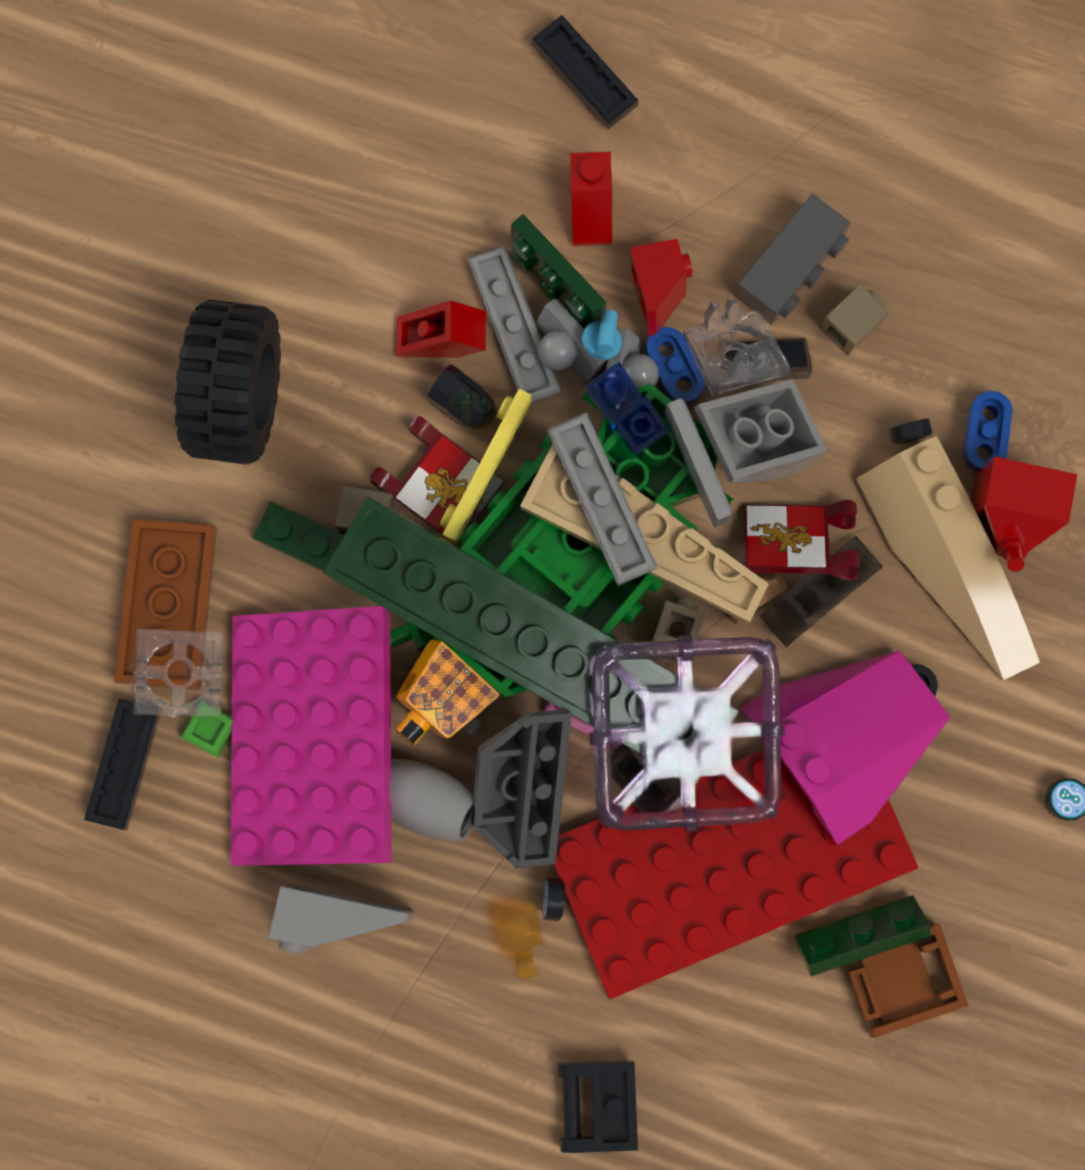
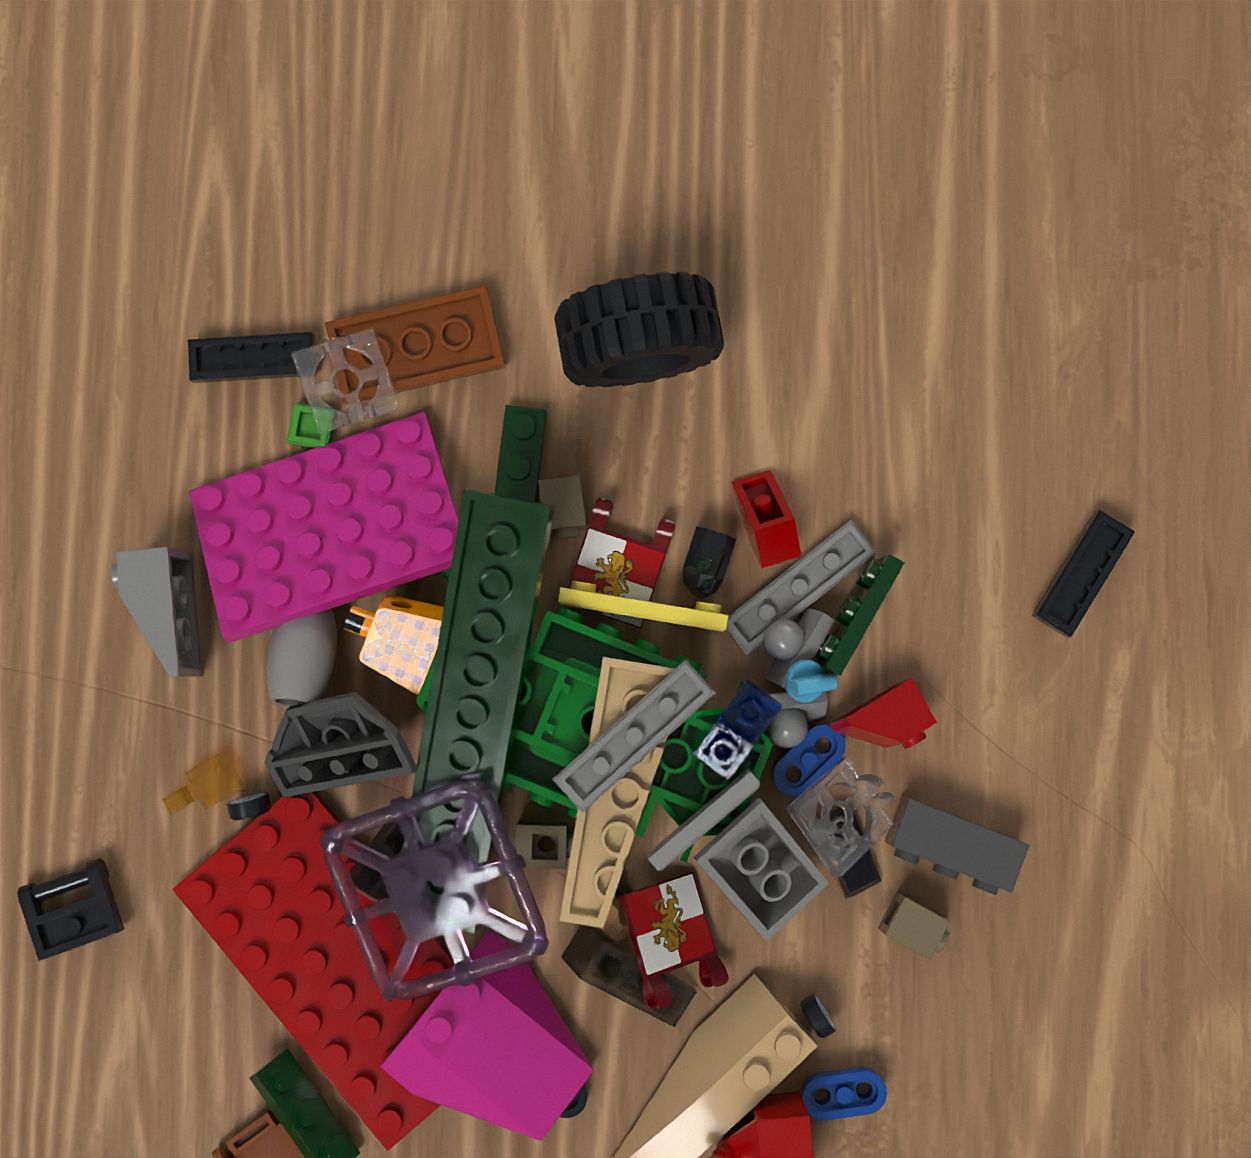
camera: 70 degrees right, 5 degrees up
(591, 198) = (952, 622): red slope -> none

